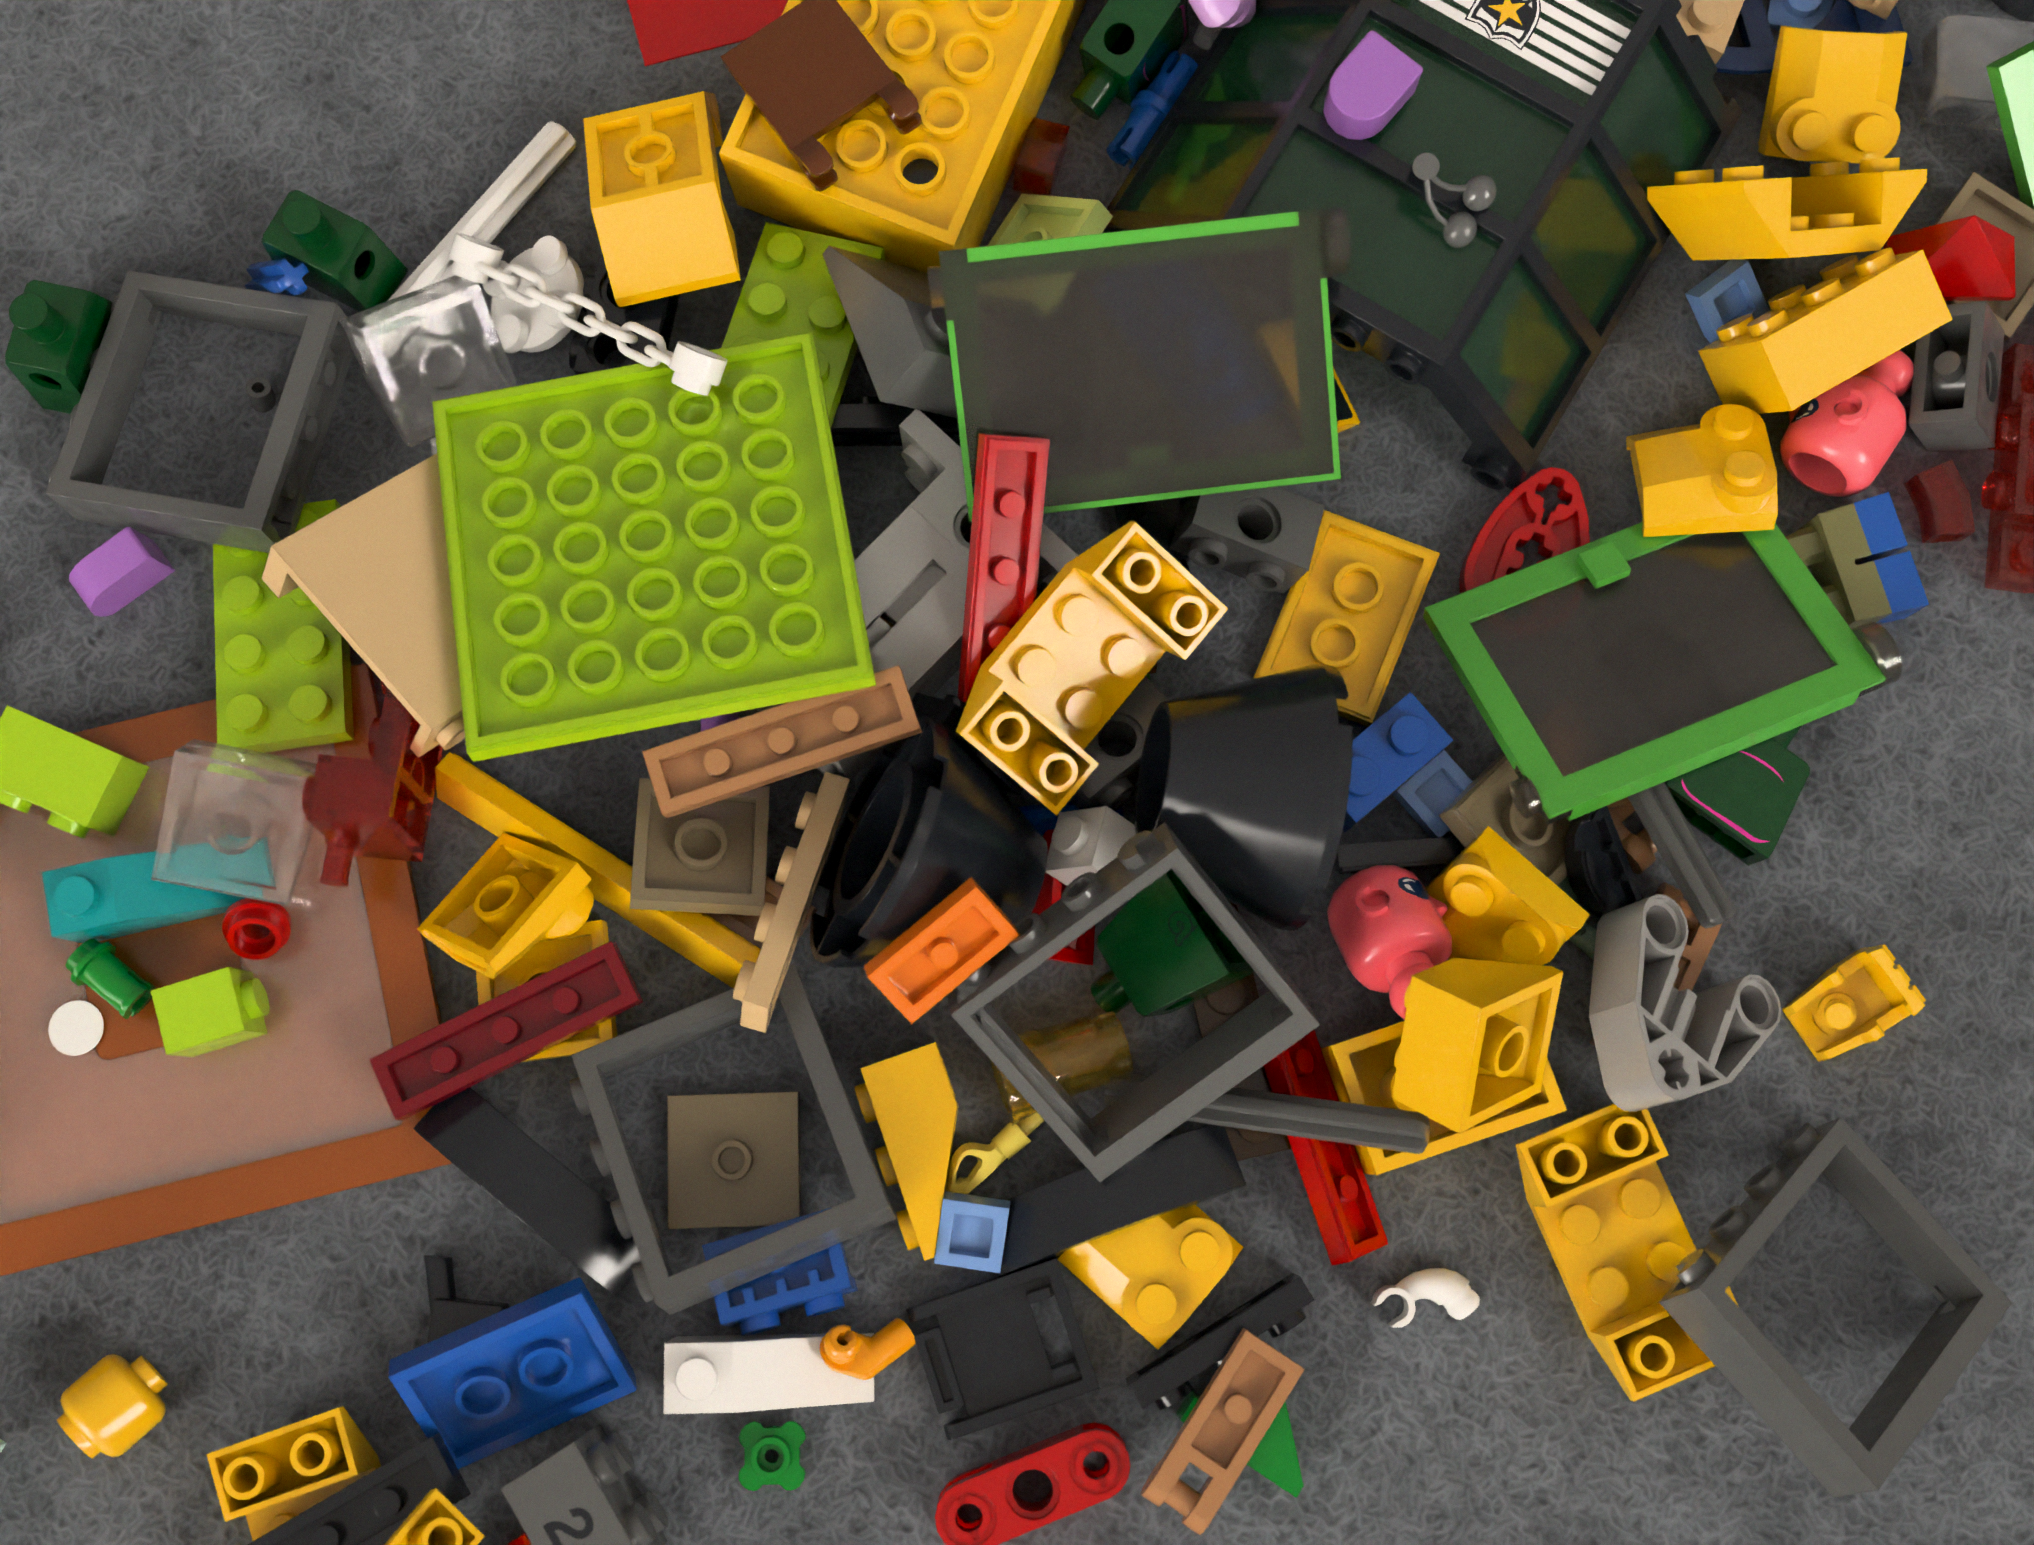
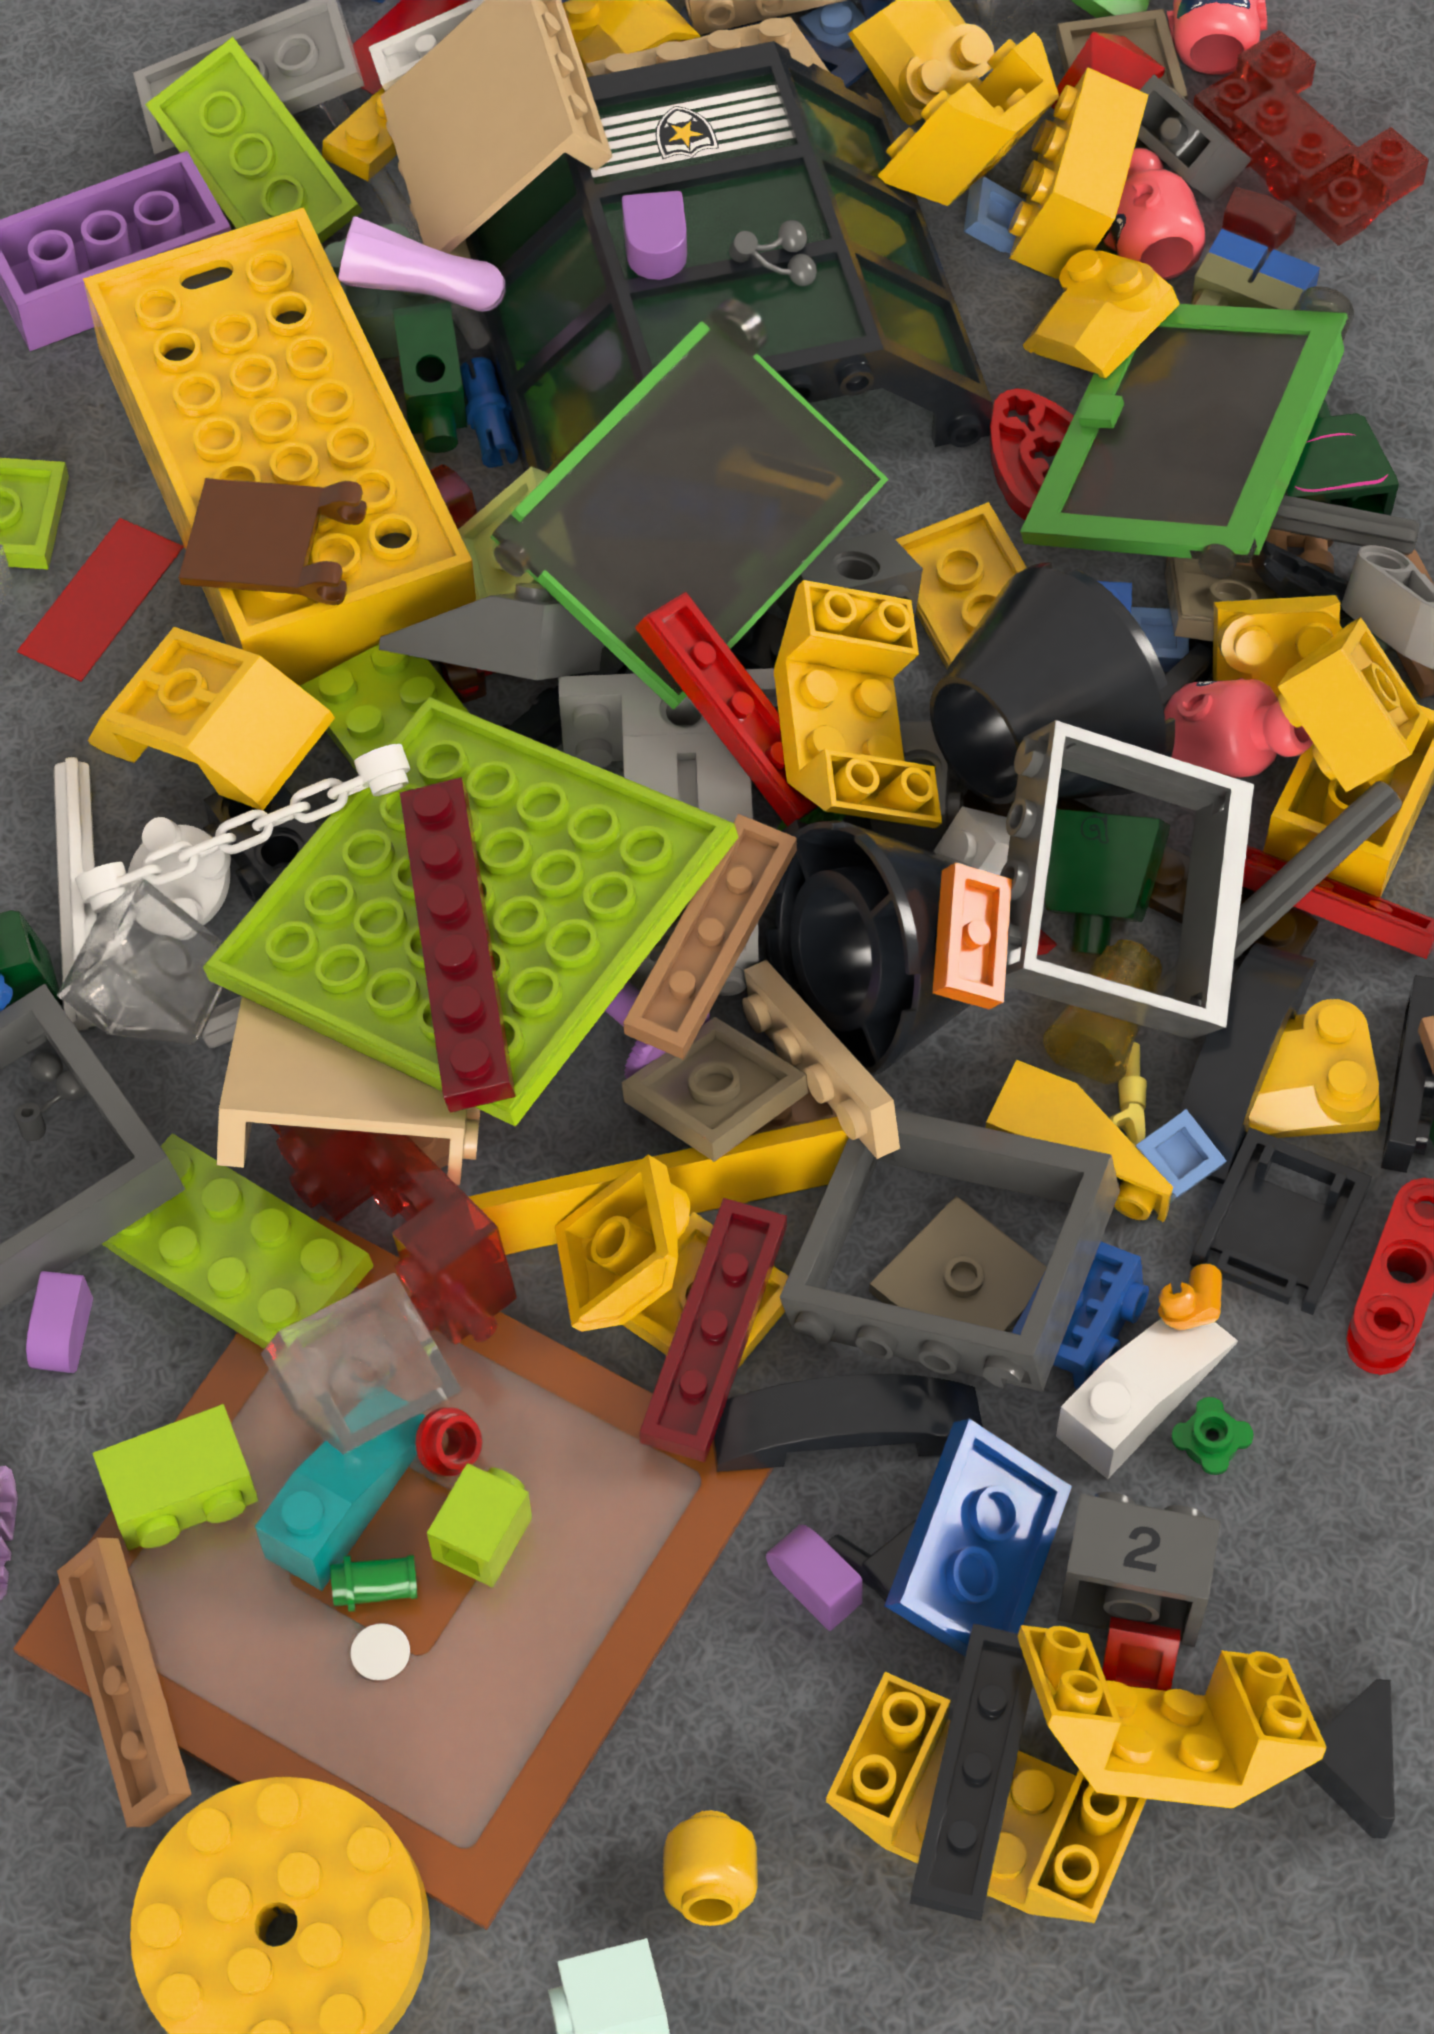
camera: 45 degrees left, 20 degrees down
(396, 1272) = (816, 1575): none -> medium lavender piece
(582, 572) = (456, 946): none -> dark red plate

